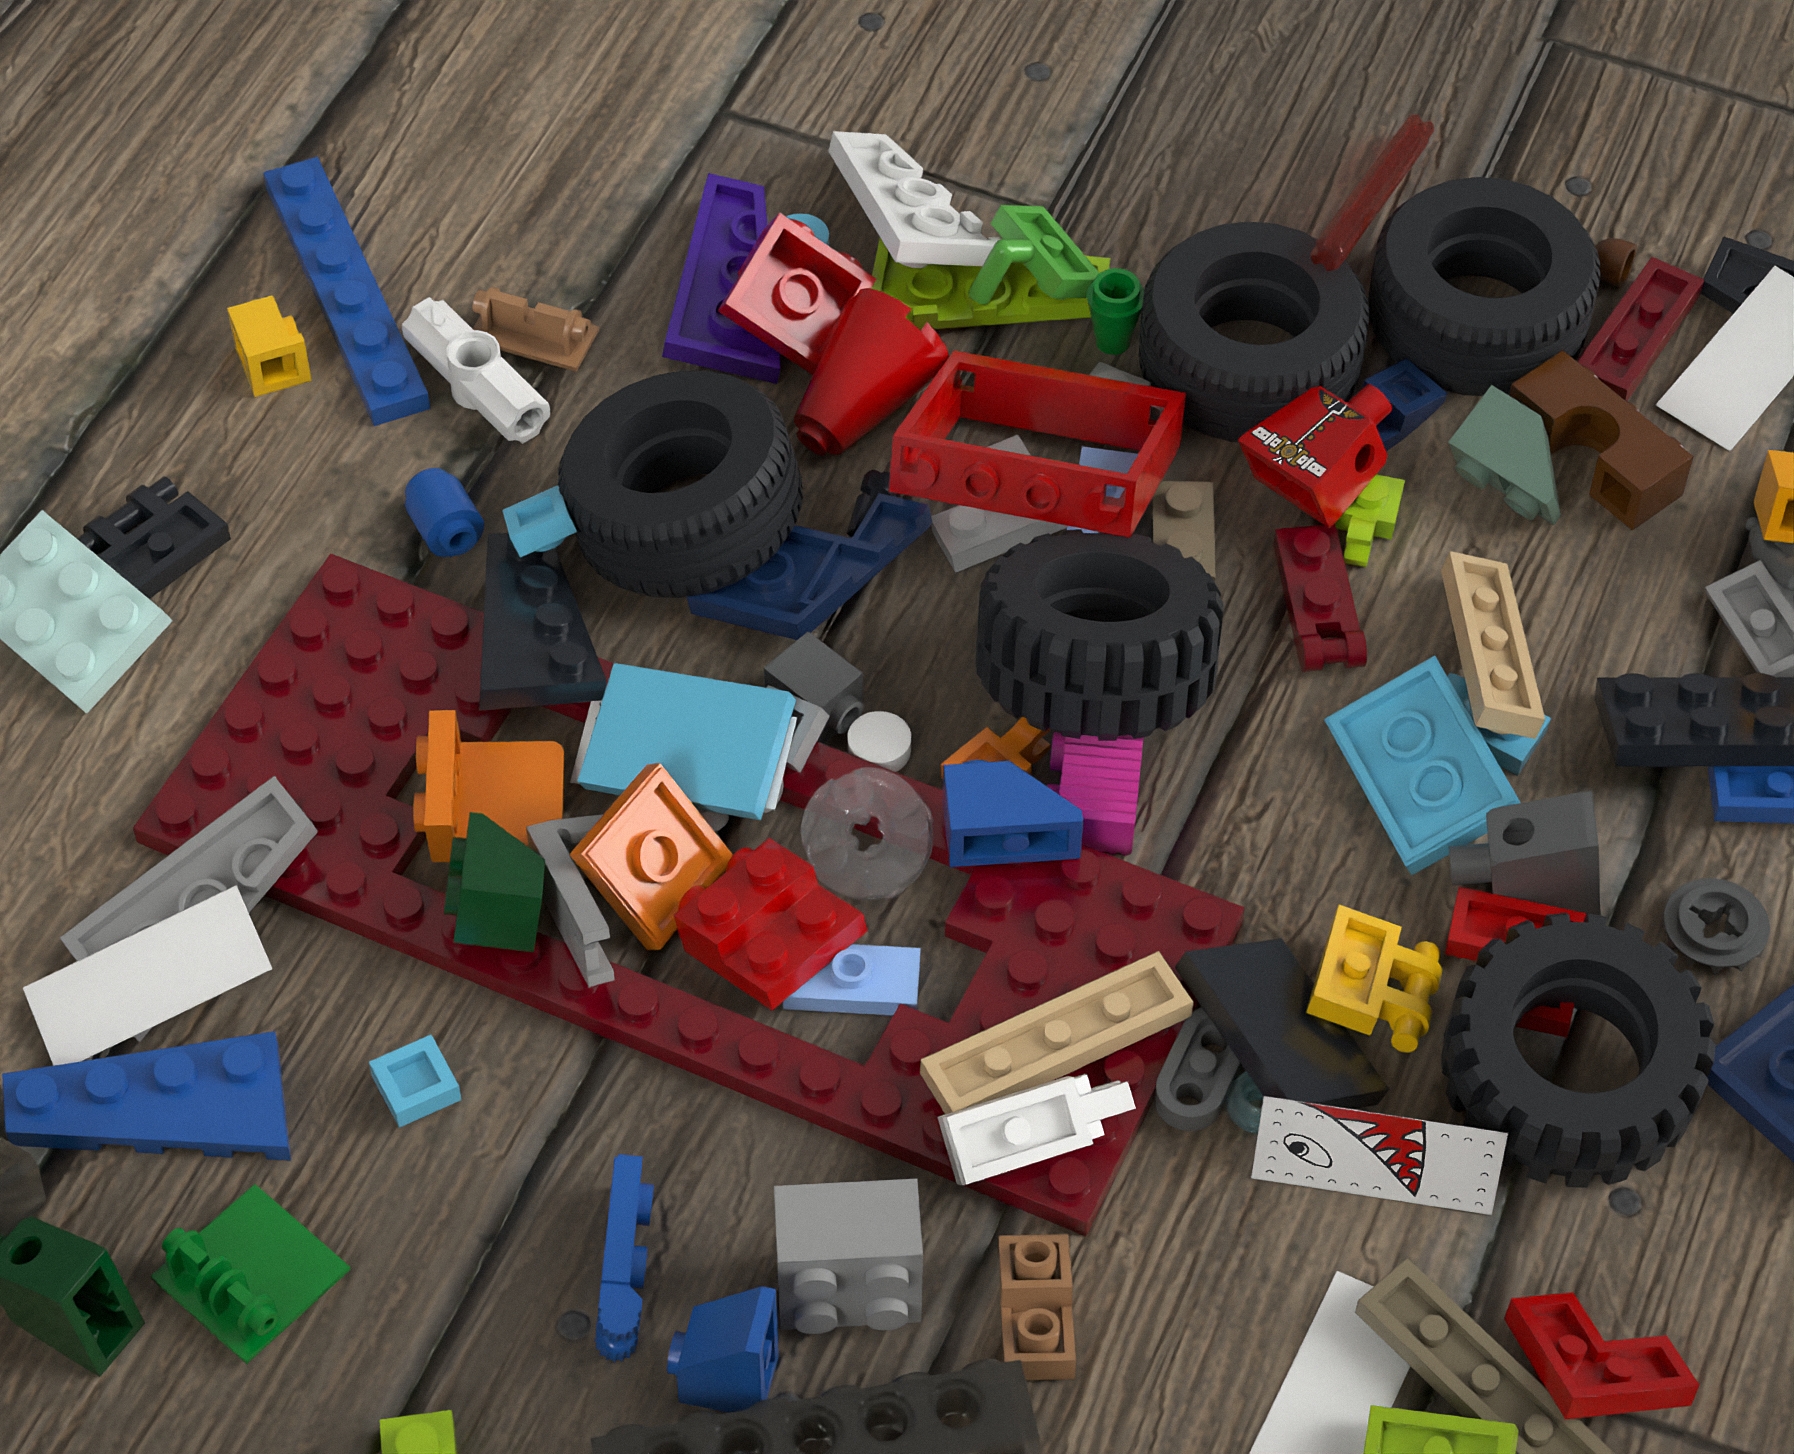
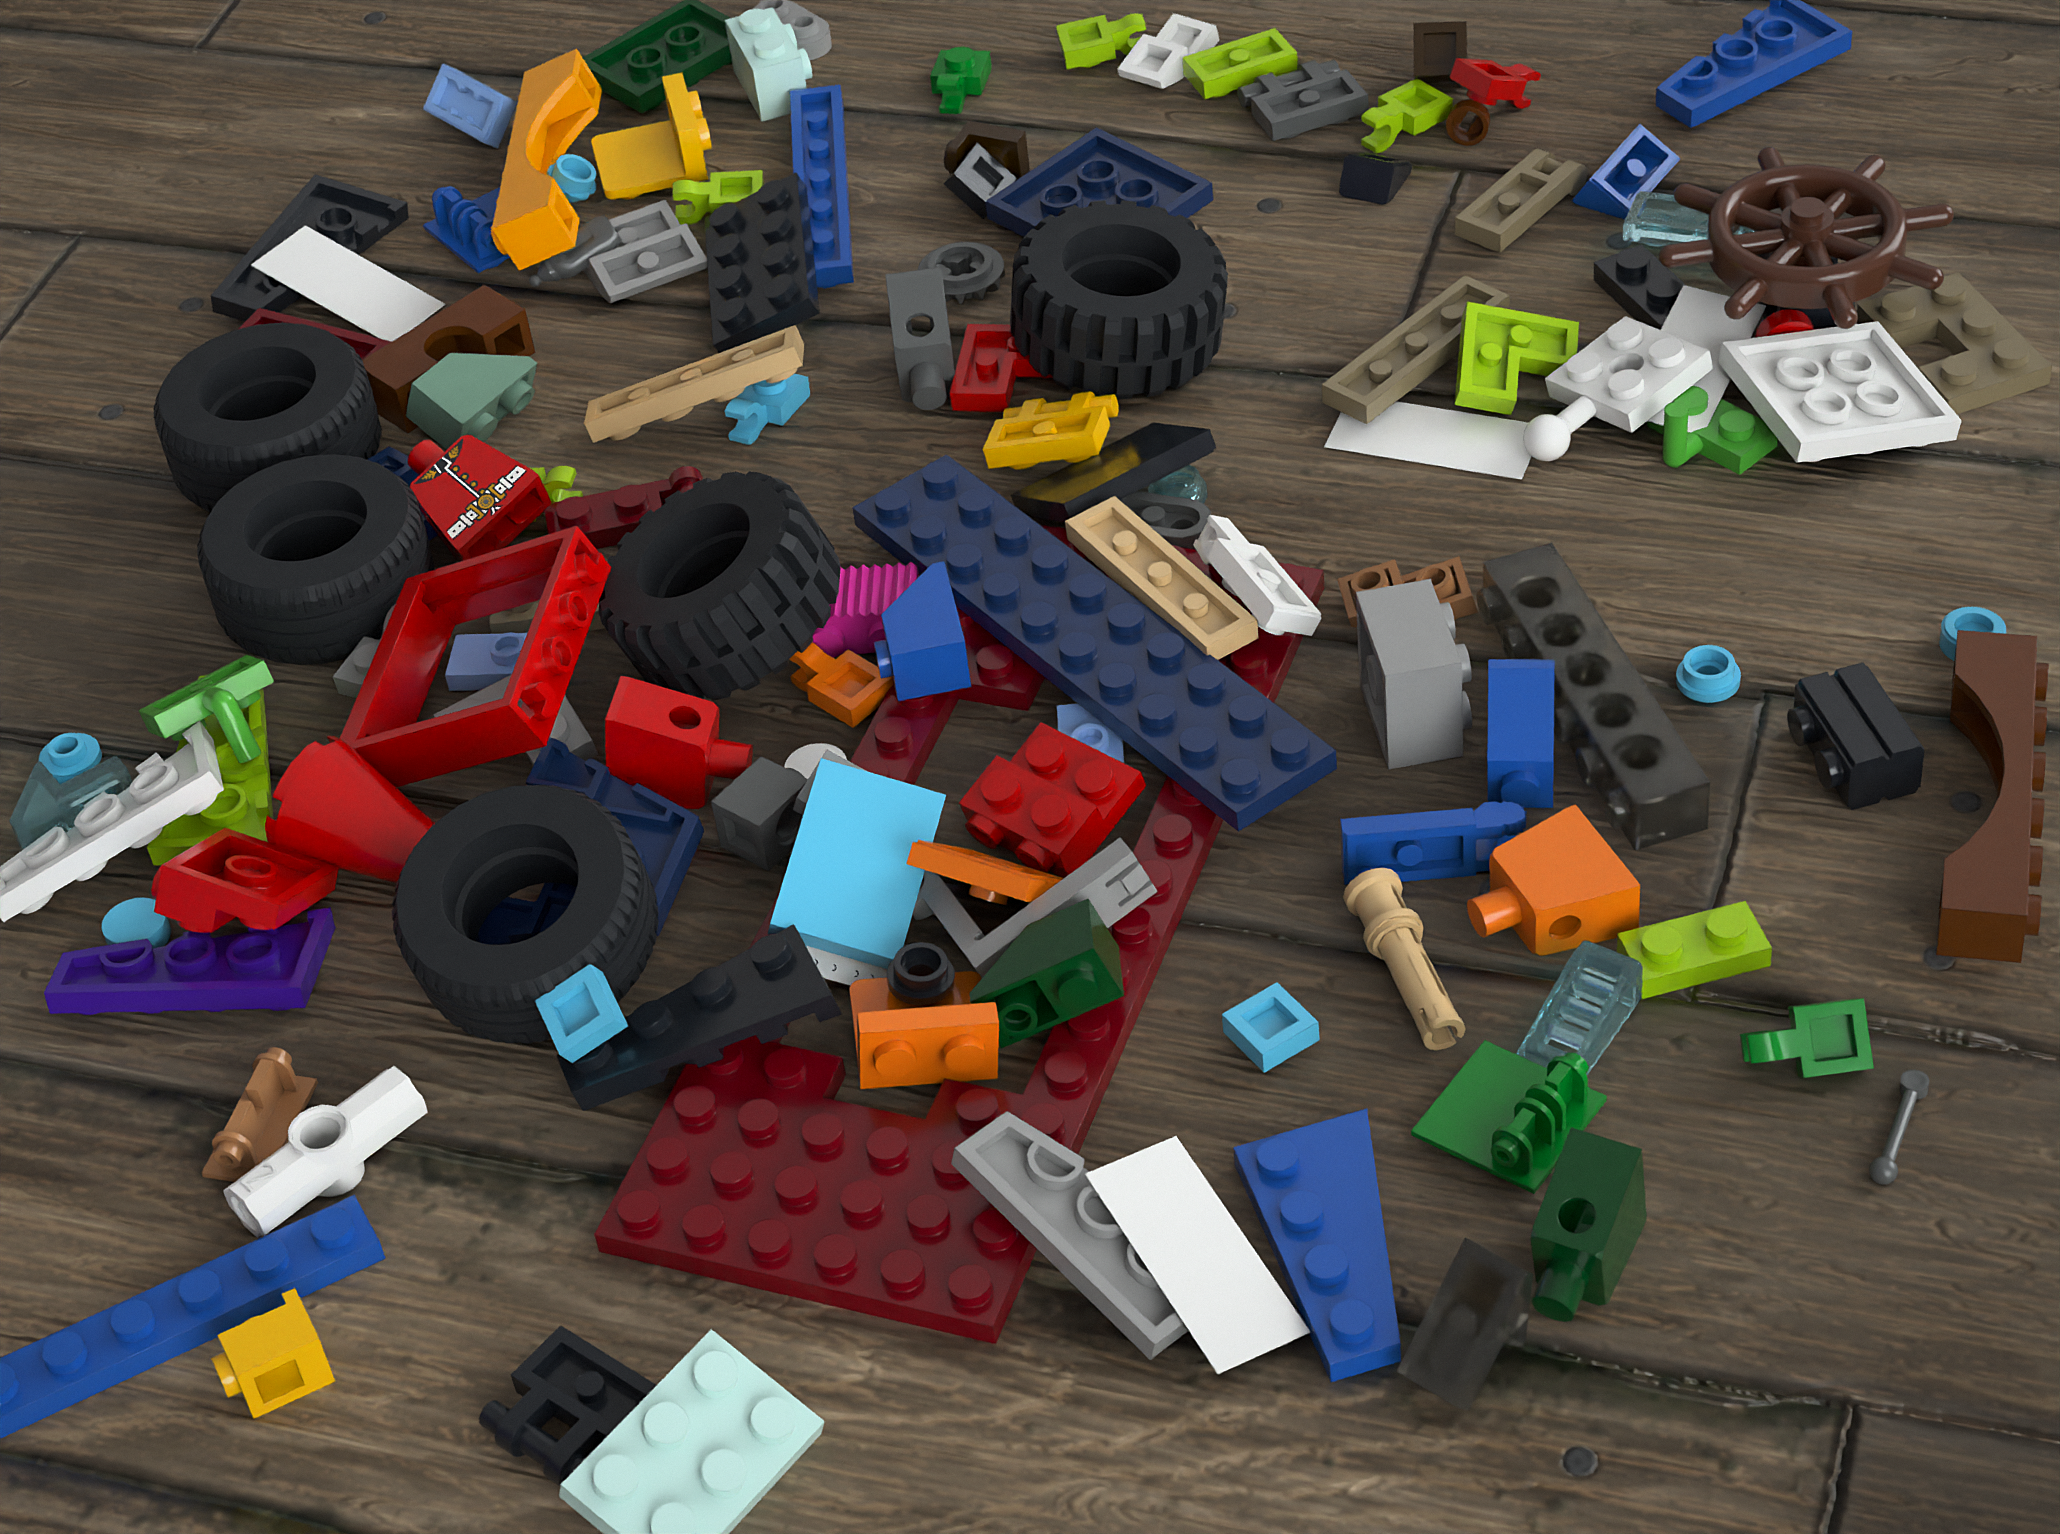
camera: 90 degrees left, 10 degrees down
(390, 1393) = (1598, 977): none -> clear light blue slope
(443, 512) = (536, 1143): blue brick -> none
(505, 1205) = (1396, 937): none -> tan pin
(527, 1362) = (1557, 887): none -> orange torso
(541, 775) = (920, 974): none -> black plate
(854, 799) = (924, 714): clear plate -> none
(904, 602) = (669, 743): none -> red torso
(958, 164) = (52, 804): none -> clear light blue slope
(1033, 182) = (70, 755): none -> medium azure plate
(1059, 929) = (1099, 643): none -> dark blue plate
(1114, 308) = (282, 646): green cone -> none
(1371, 193) = (153, 479): clear red axle -> none
(1378, 1155) = (1230, 407): white sticker -> none
(1421, 764) = (823, 420): medium azure tile -> none
(1593, 1374) = (1393, 287): red plate -> none

